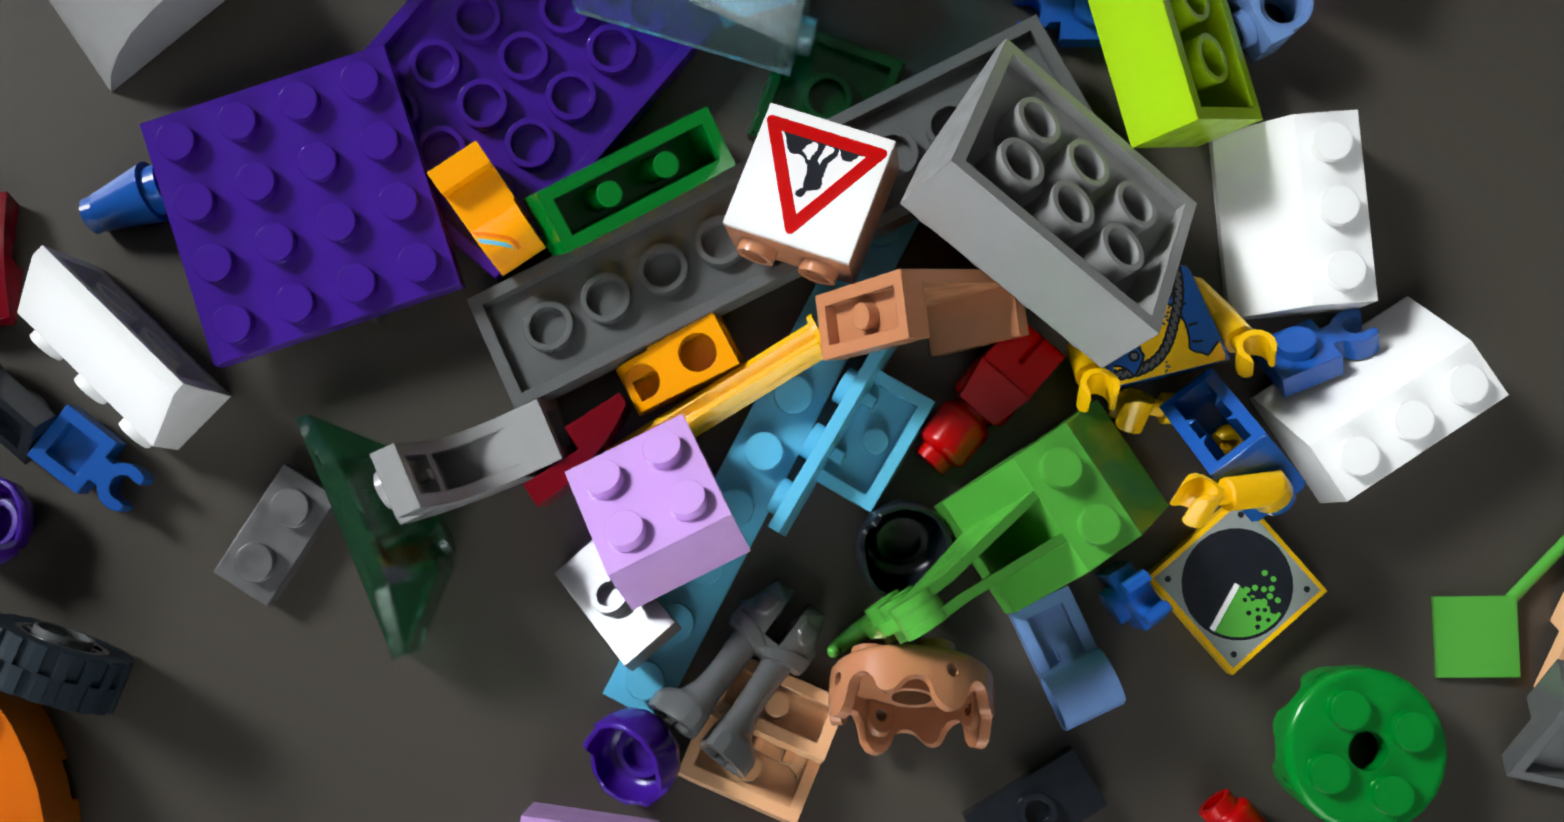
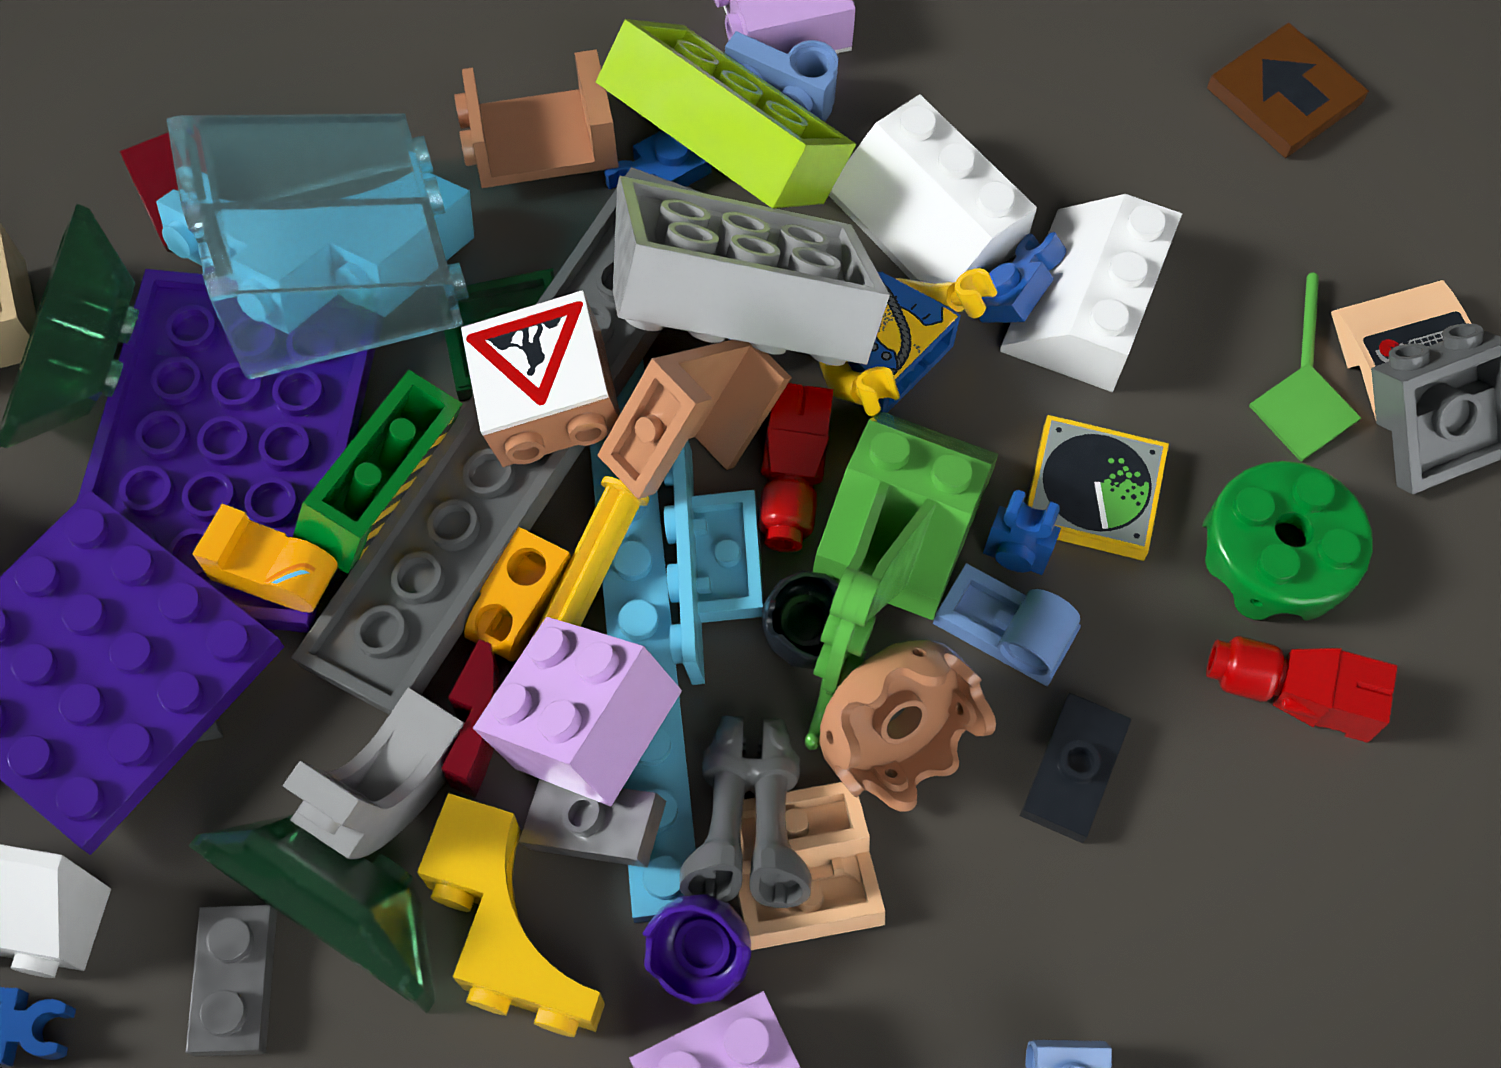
camera: 35 degrees left, 20 degrees down
(482, 664) = (473, 863): none -> yellow arch
(1227, 442) = (1007, 369): torso -> none

